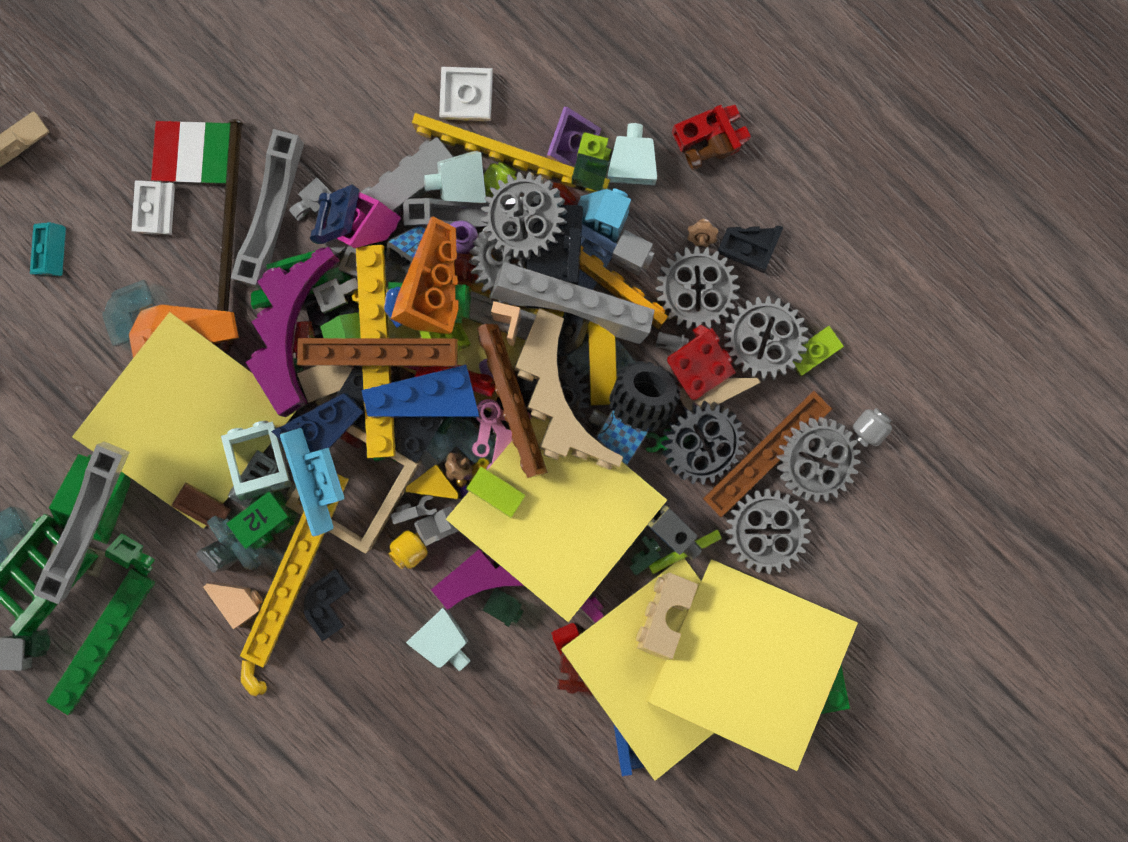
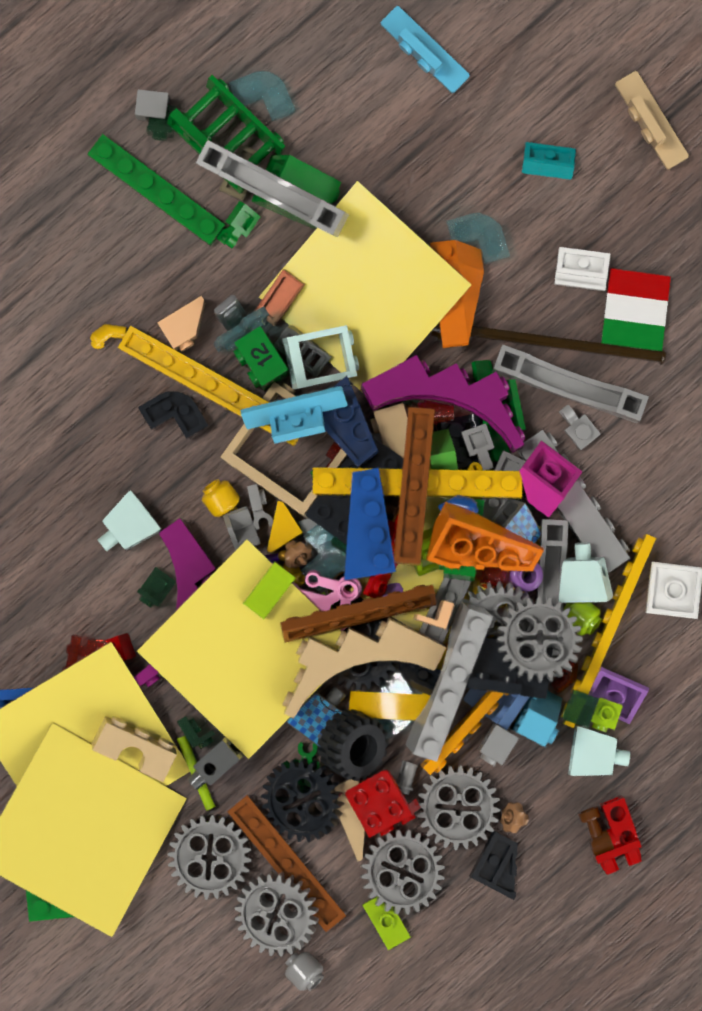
camera: 85 degrees right, 0 degrees up
(340, 219) = (556, 458): dark blue plate -> none

